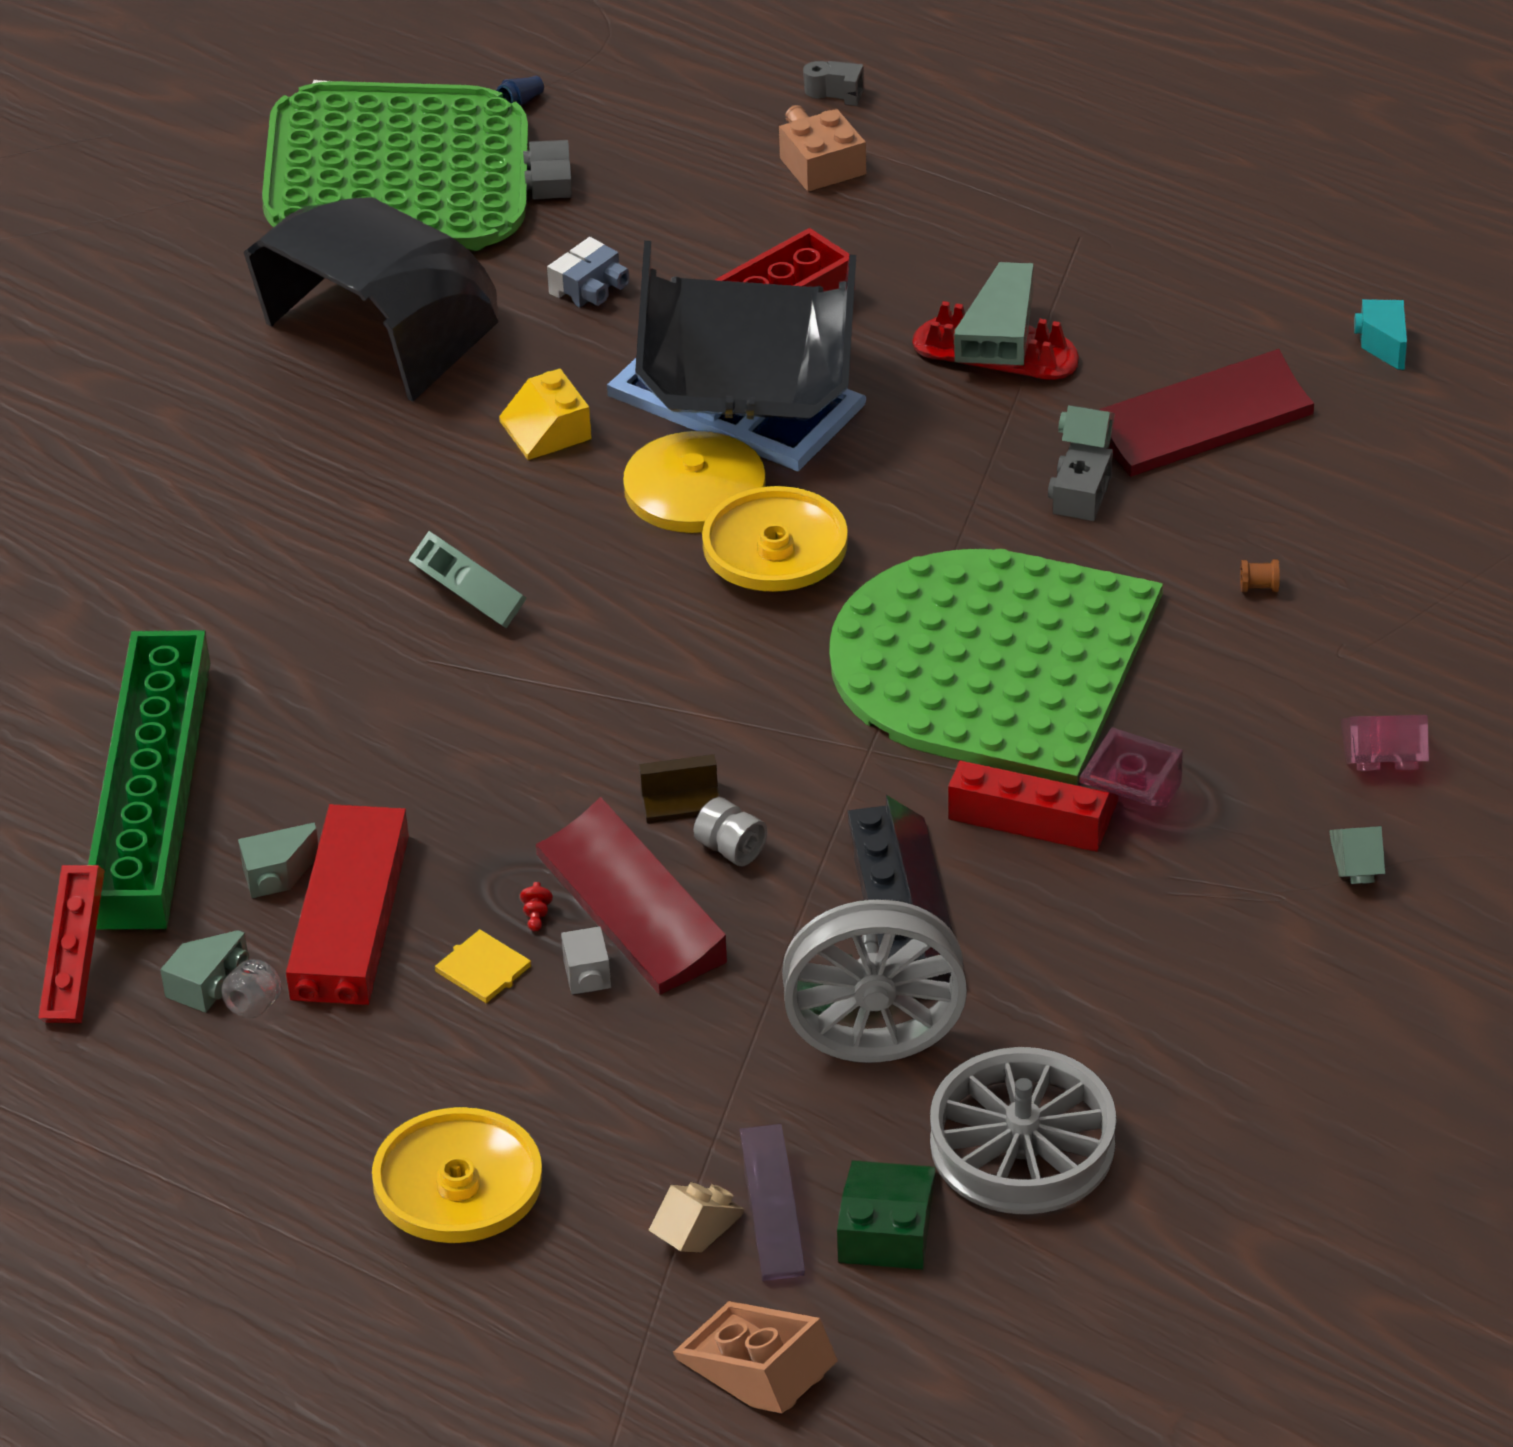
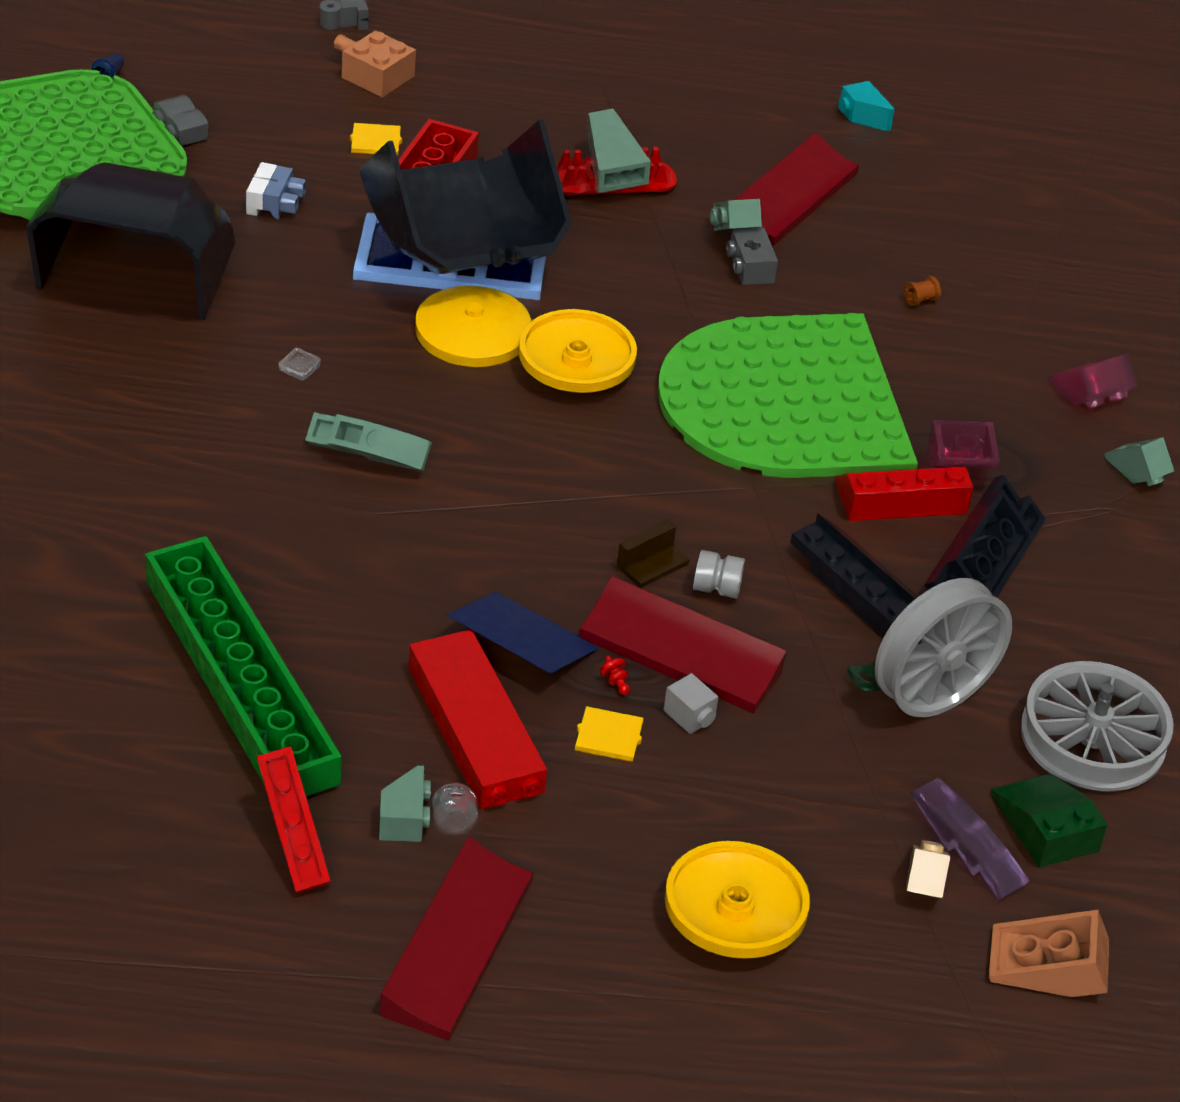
camera: 35 degrees left, 0 degrees up
(152, 1116) = (455, 942): none -> dark red arch
(278, 858) = (388, 702): sand green slope -> none
(468, 829) = (522, 632): none -> dark blue sticker
(471, 475) = (299, 364): none -> clear tile
(547, 415) = (328, 303): yellow slope -> none
(755, 237) = (371, 137): none -> yellow piece
(1065, 899) = (991, 539): none -> black slope

